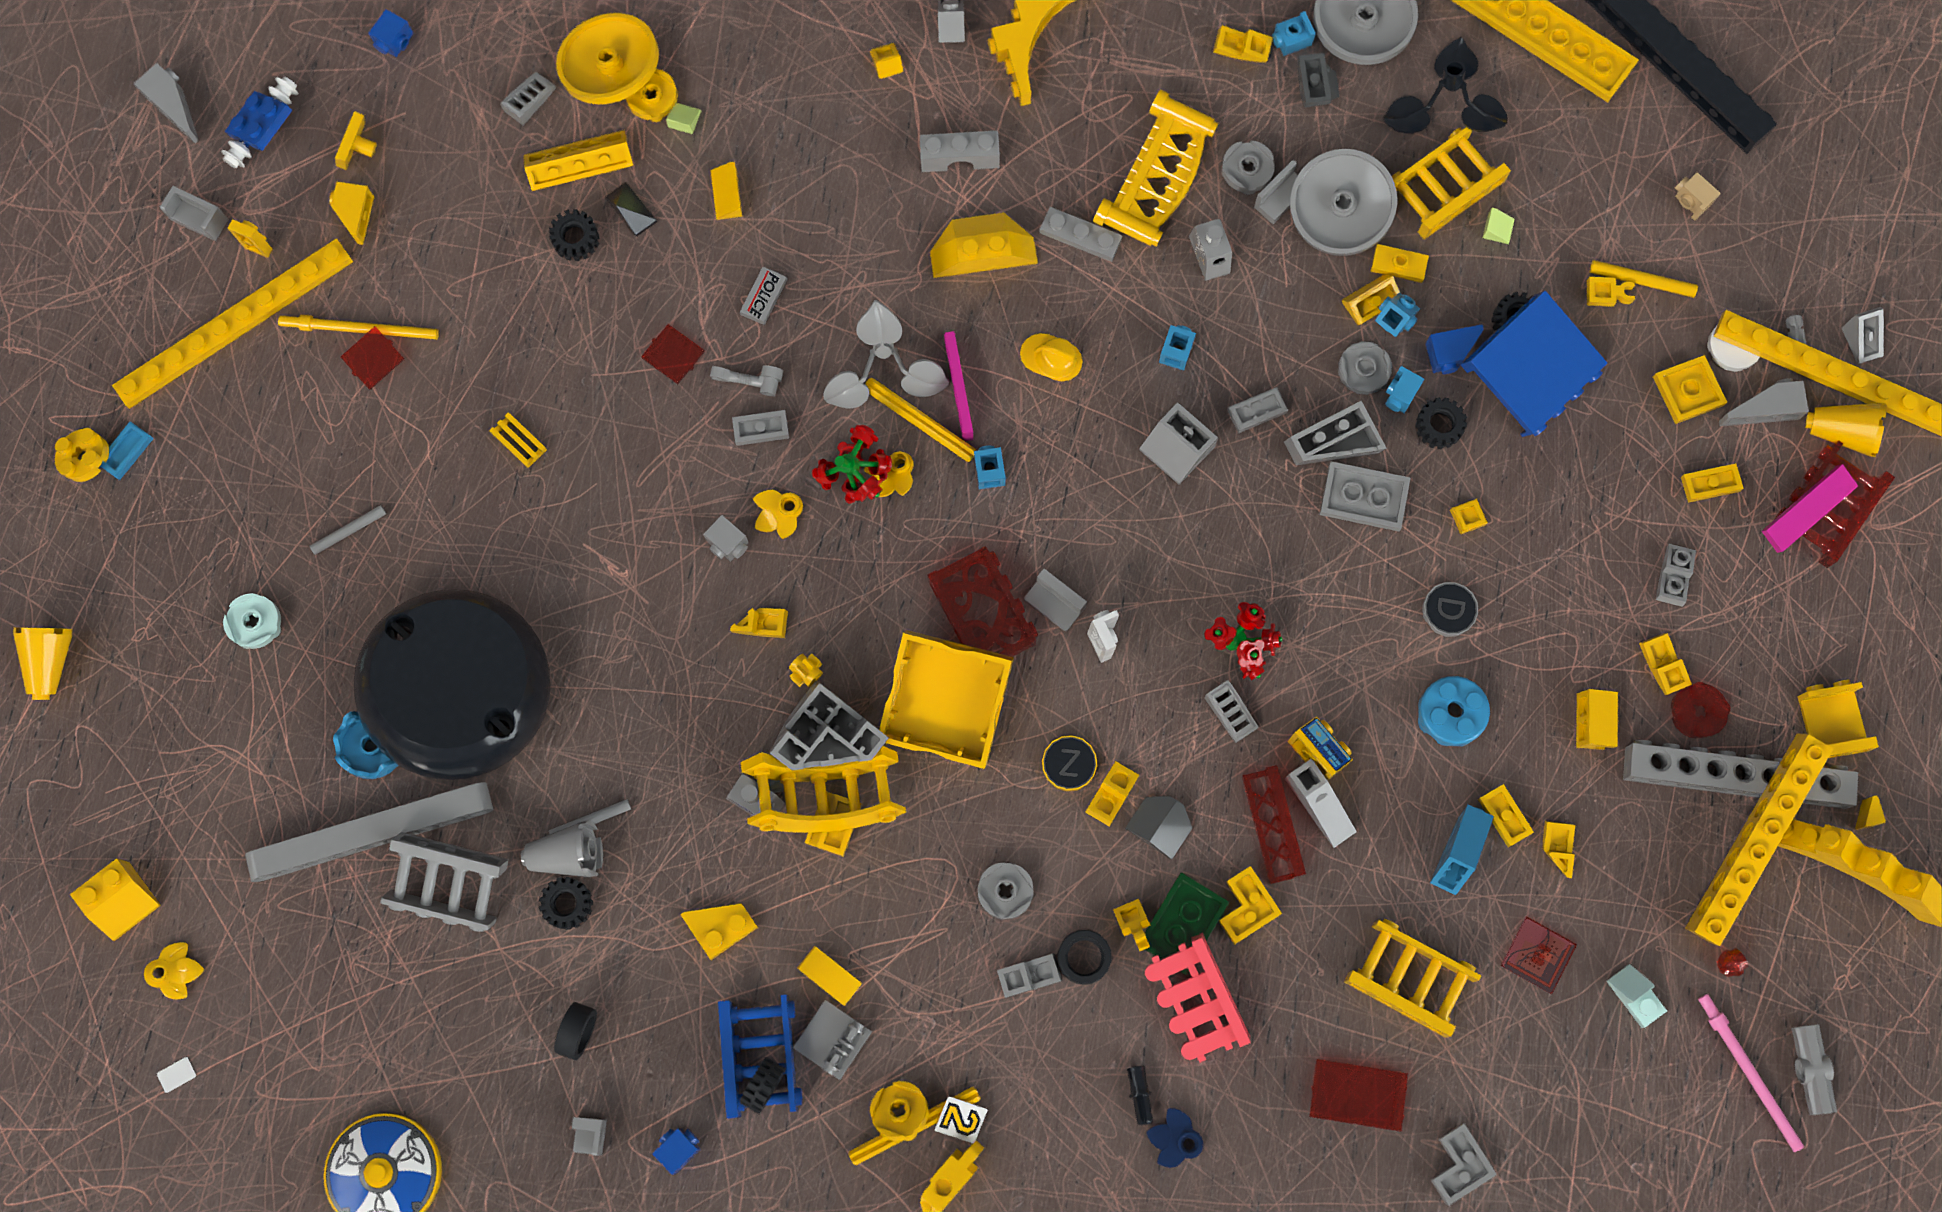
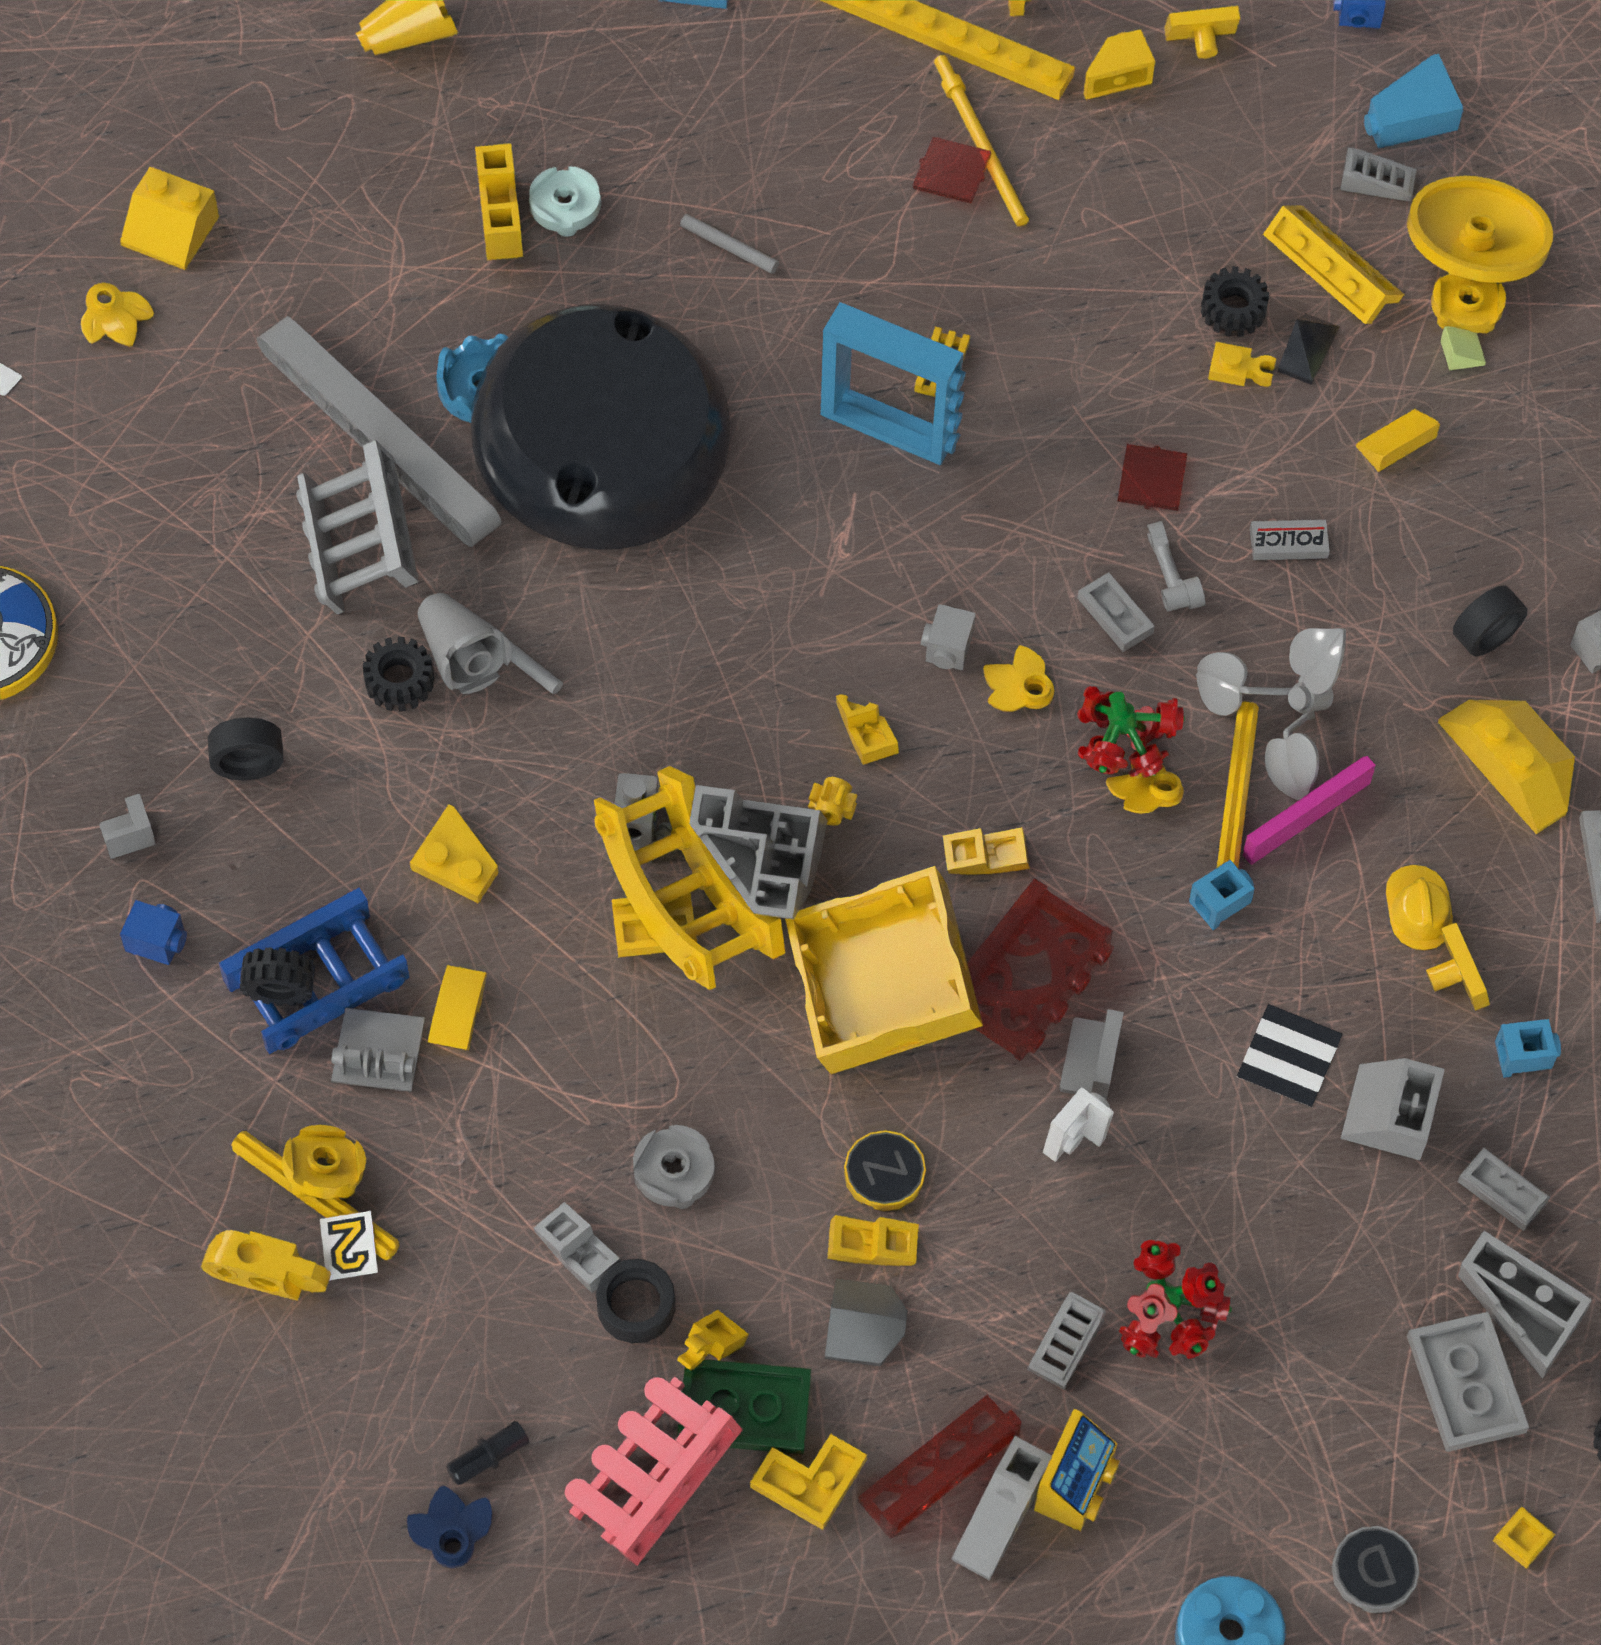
camera: 60 degrees right, 15 degrees down
(232, 666) = (499, 202): none -> yellow arch
(490, 44) = (1415, 106): none -> dark azure slope
(524, 469) = (904, 349): none -> dark azure window
(619, 260) = (1233, 365): none -> yellow plate
(886, 593) = (991, 853): none -> yellow slope
(890, 209) = (1490, 620): none -> black tyre
(1107, 356) = (1459, 969): none -> yellow tile
(1109, 484) = (1289, 1055): none -> sticker

